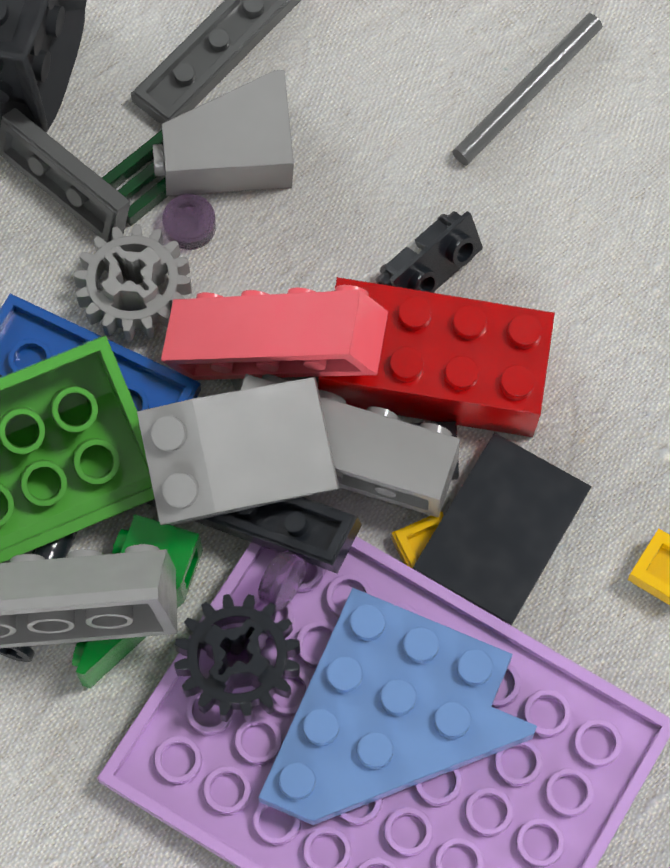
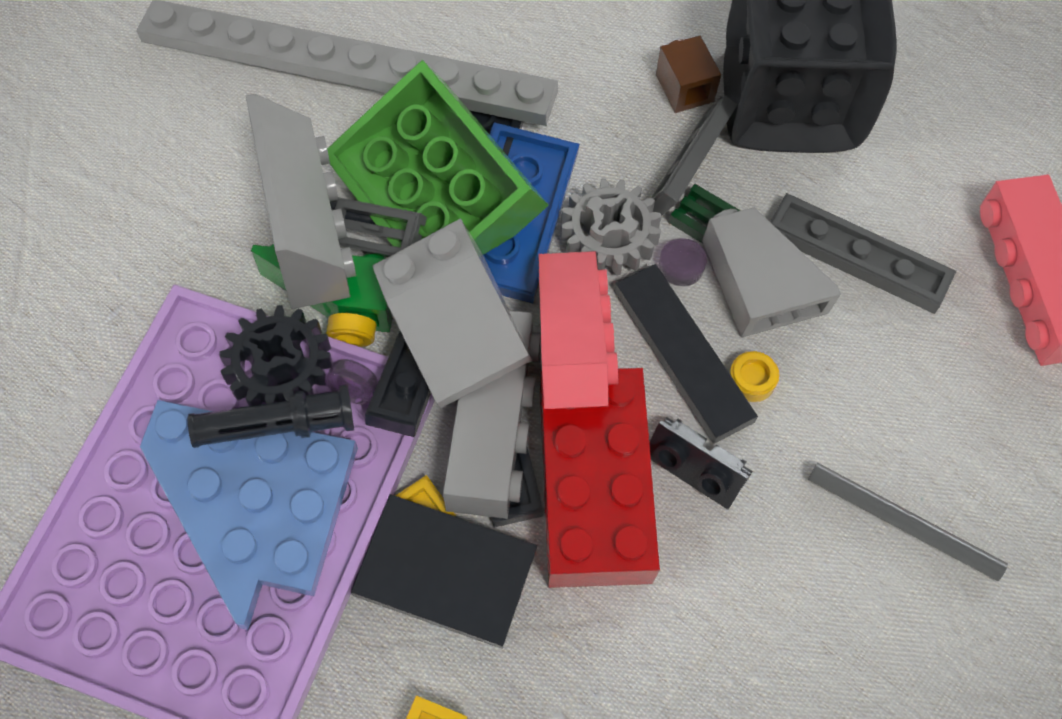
camera: 75 degrees right, 5 degrees down
(77, 504) = (408, 237): none -> dark grey tile
(201, 584) = (351, 329): none -> yellow tile
(300, 245) = (685, 354): none -> black tile
(321, 633) = (298, 415): none -> black pin
(343, 185) = (755, 375): none -> yellow tile

